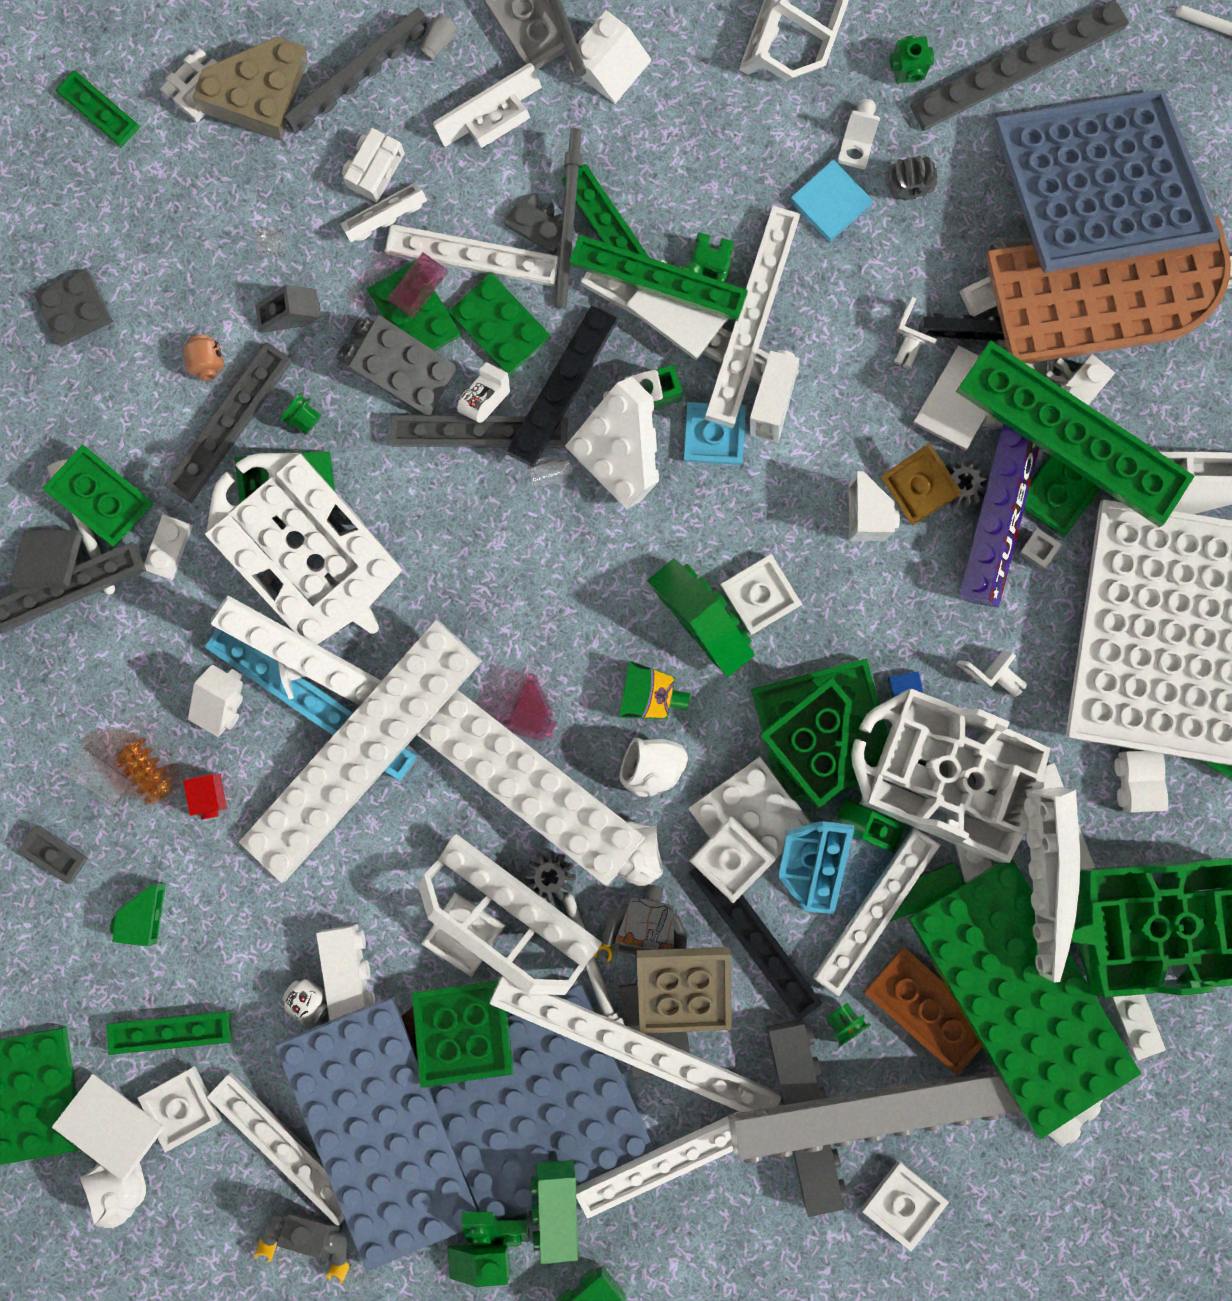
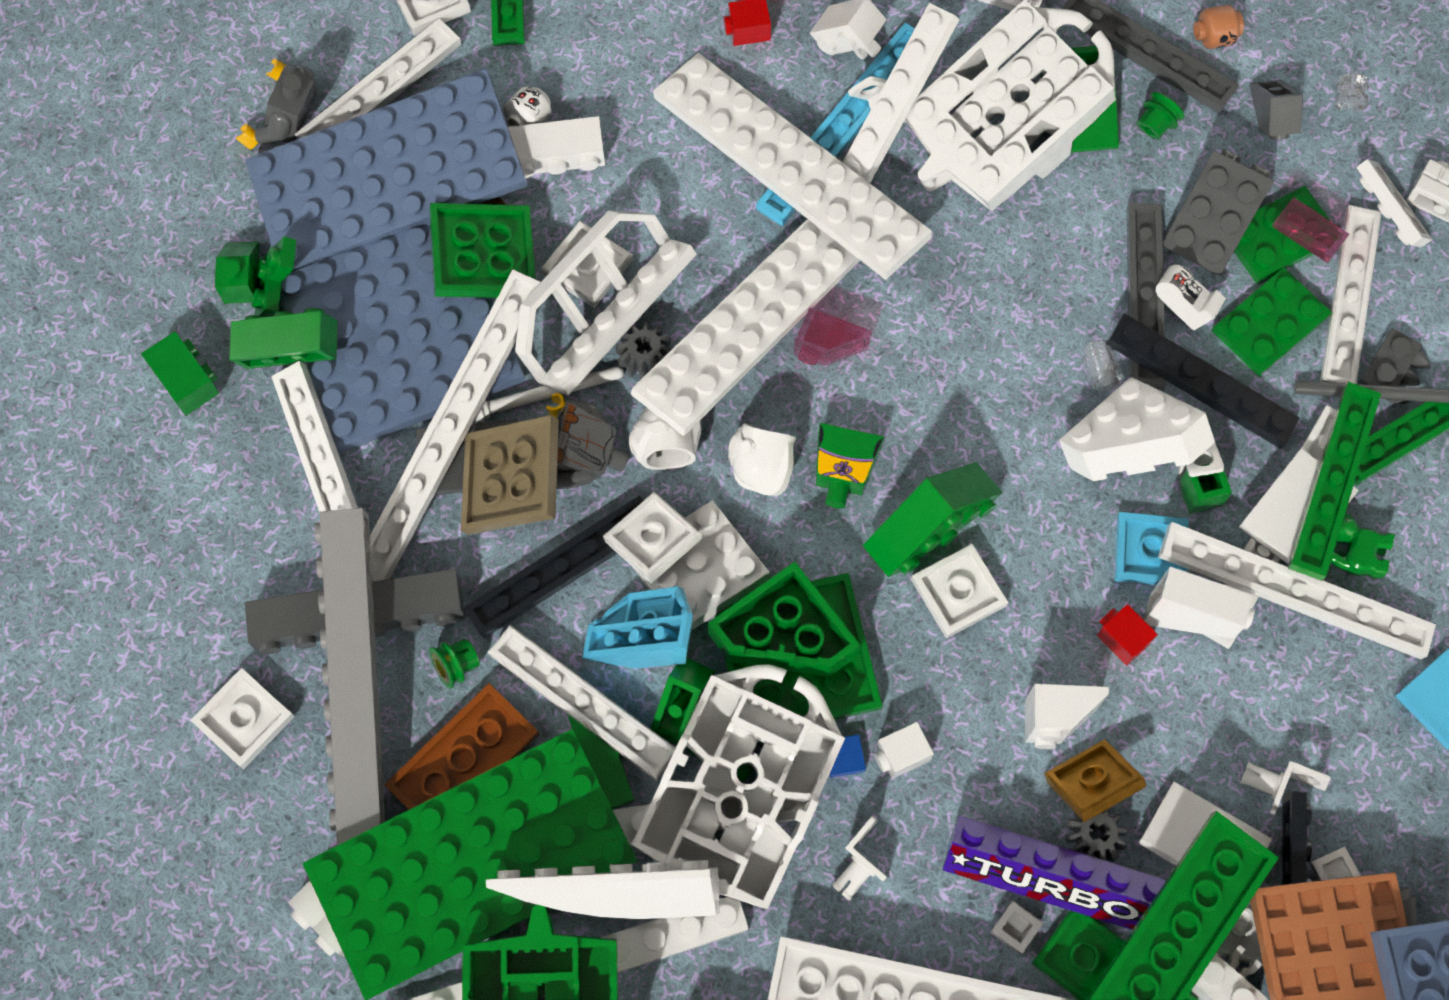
camera: 85 degrees right, 15 degrees down
(793, 456) = (1125, 633): none -> red brick
(903, 640) = (903, 751): none -> white brick

